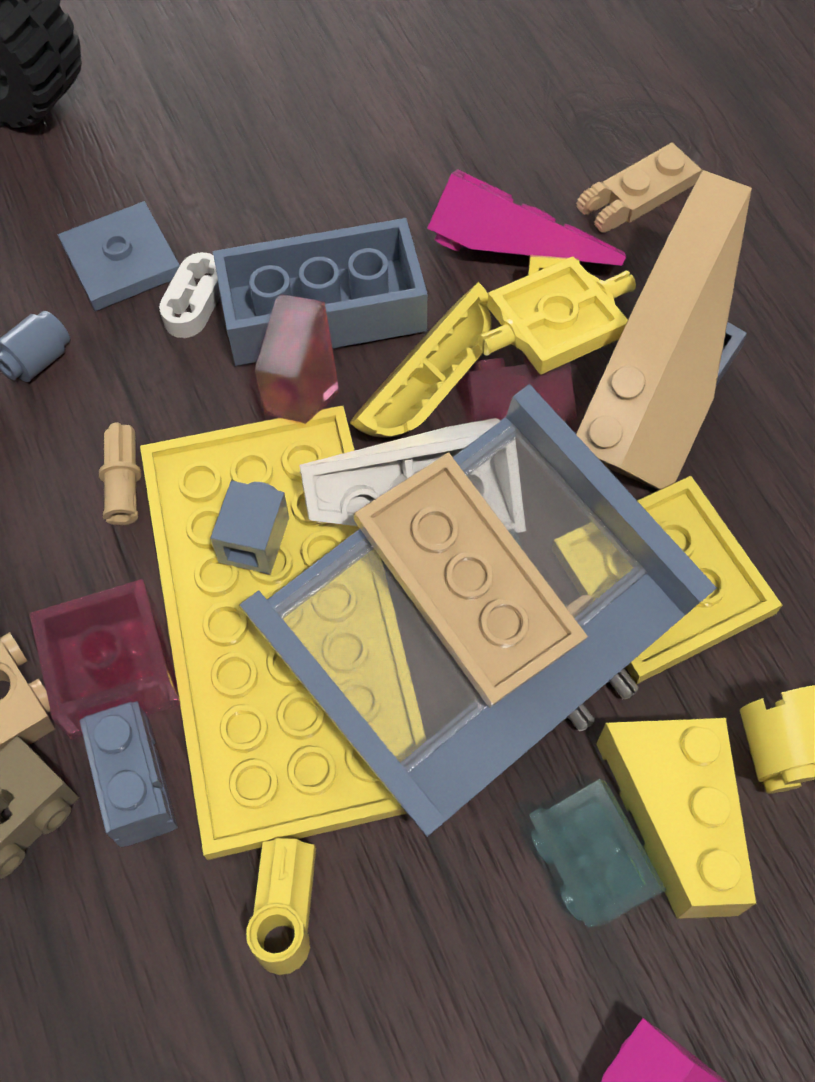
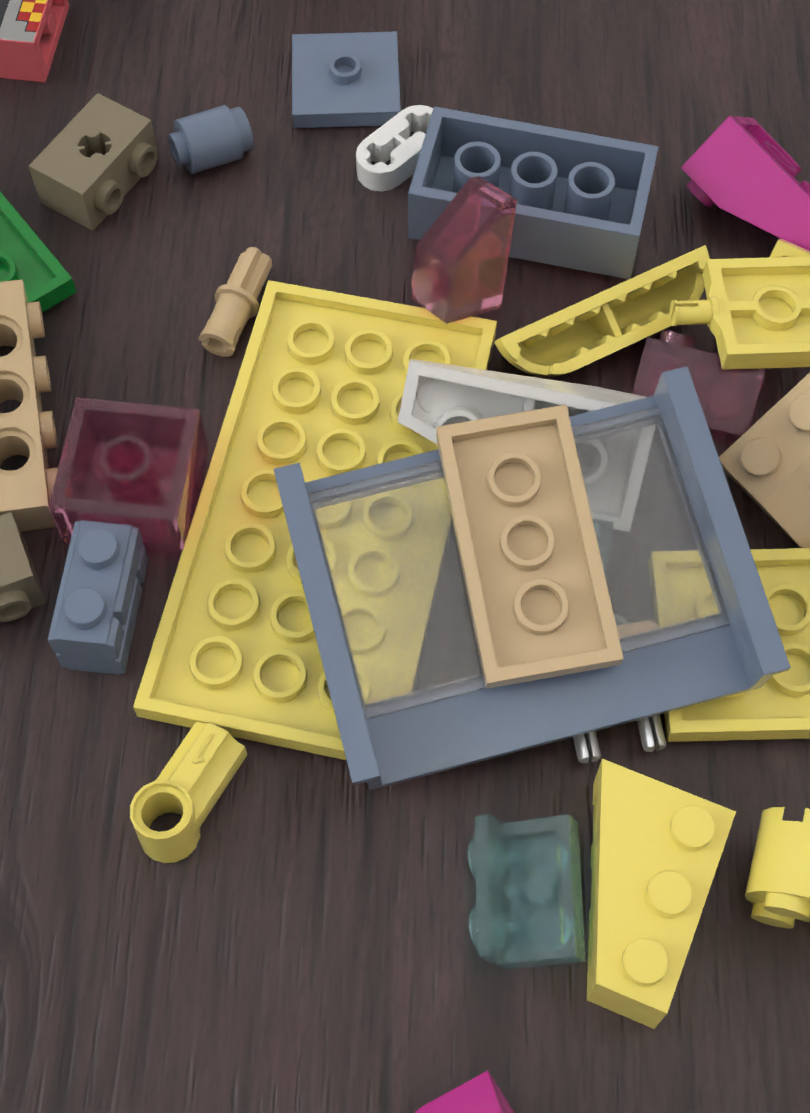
camera: 25 degrees right, 0 degrees up
(250, 526) = (334, 403): sand blue brick -> none

